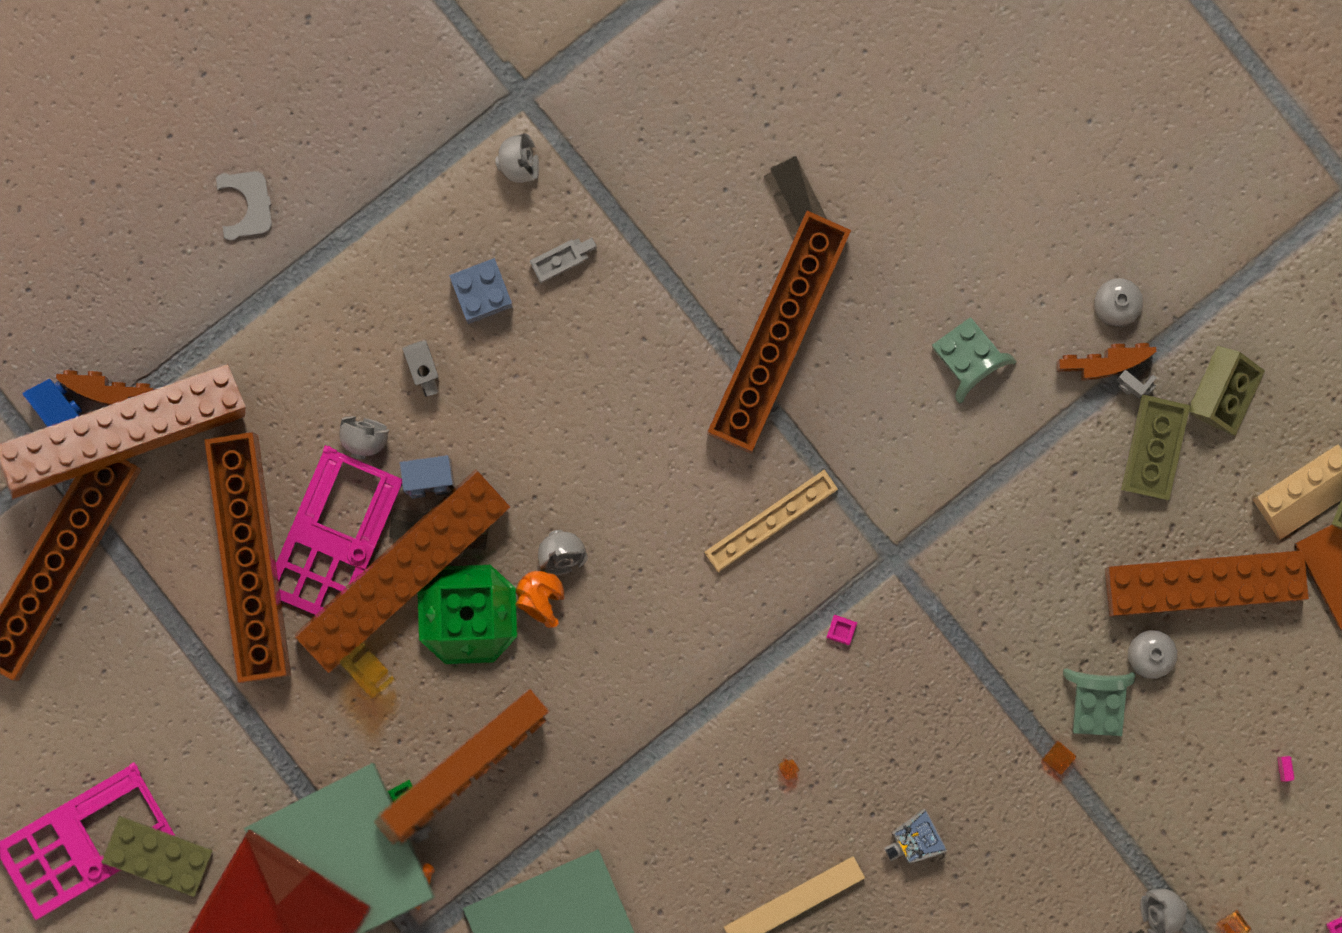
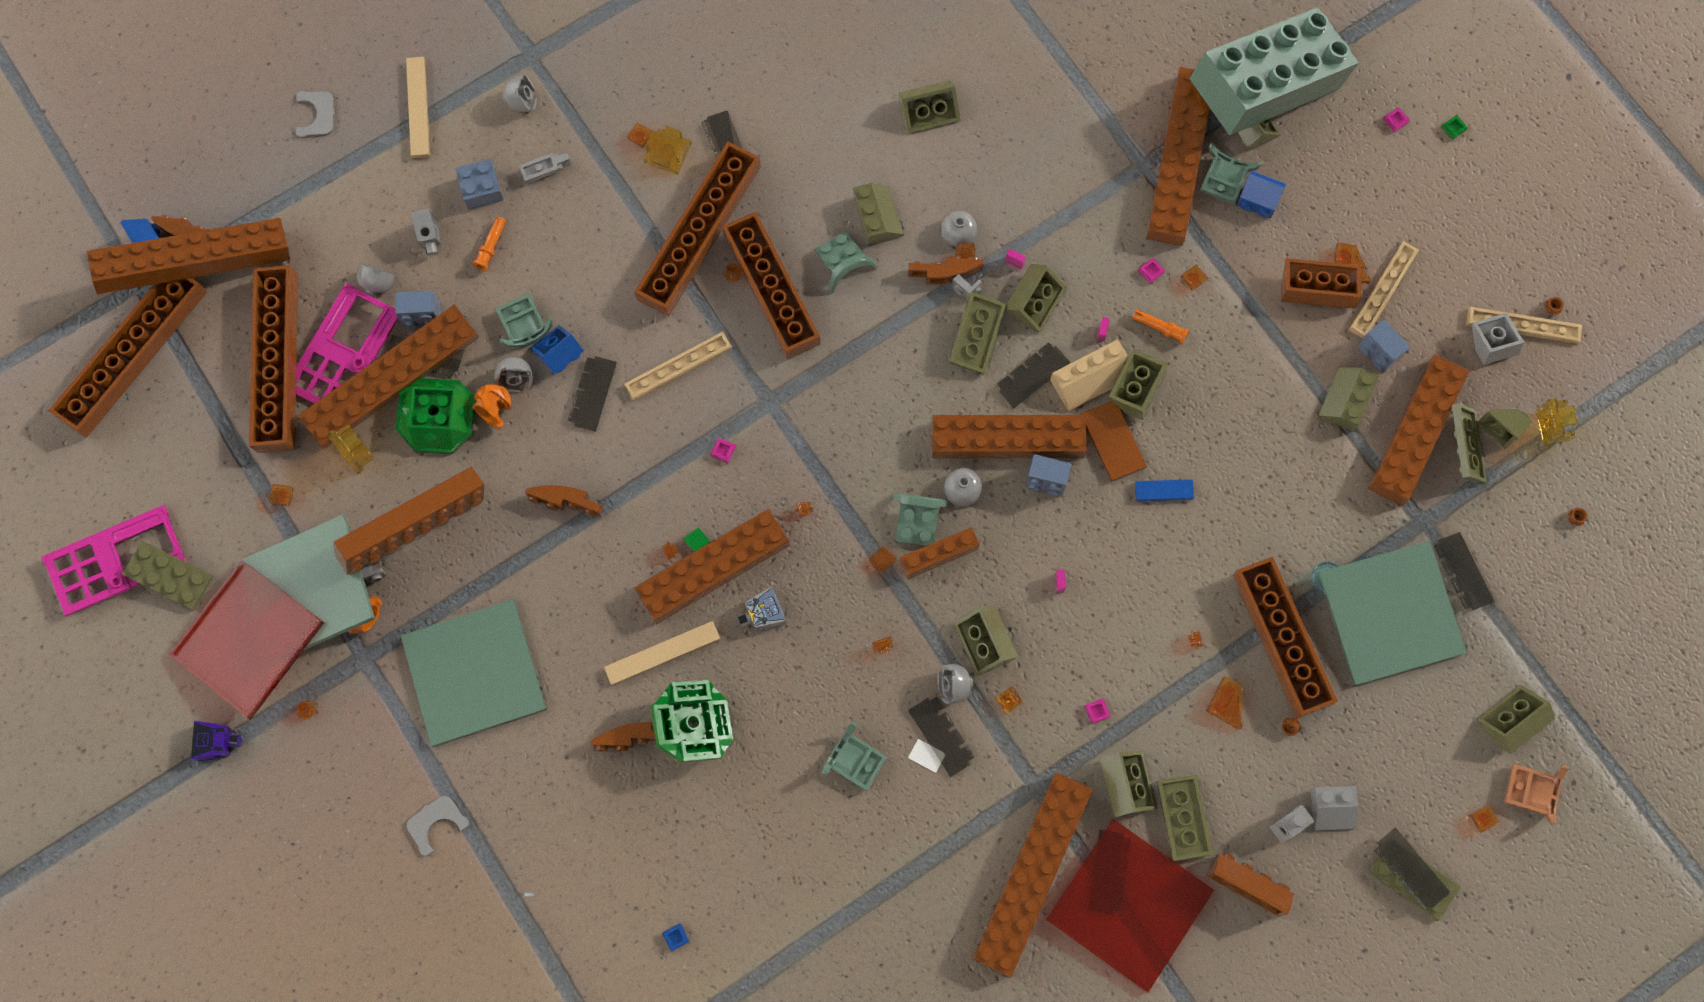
camera: 10 degrees right, 10 degrees down
(283, 738) = (281, 495): none -> clear orange plate
(382, 184) = (418, 107): none -> tan tile
(502, 383) = (486, 251): none -> orange pin
(562, 479) = (522, 322): none -> sand green piece
(612, 512) = (557, 349): none -> blue slope
(637, 710) = (558, 496): none -> dark orange slope
(667, 571) = (595, 394): none -> clear smoke windscreen
(684, 202) = (639, 135): none -> clear orange plate
(723, 220) = (667, 149): none -> clear yellow panel
(821, 752) = (696, 539): none -> green tile
(827, 380) = (732, 268): none -> clear orange plate
(846, 786) = (712, 566): none -> dark orange brick
(882, 403) = (771, 285): none -> dark orange brick
(953, 699) = (803, 508): none -> clear orange plate
(1010, 288) = (877, 213): none -> olive slope
(1065, 130) = (929, 106): none -> olive slope
(1070, 870) = (883, 645): none -> clear orange plate
(1129, 333) = (965, 251): none -> clear orange plate
(1131, 745) = (939, 553): none -> dark orange brick
(1196, 338) = (1015, 259): none -> dark pink tile
(1198, 852) = (985, 639): none -> olive slope
(1237, 491) = (1036, 375): none -> clear smoke windscreen
(1261, 633) = (1048, 475): none -> sand blue brick
(1317, 427) = (1103, 329): none -> dark pink tile

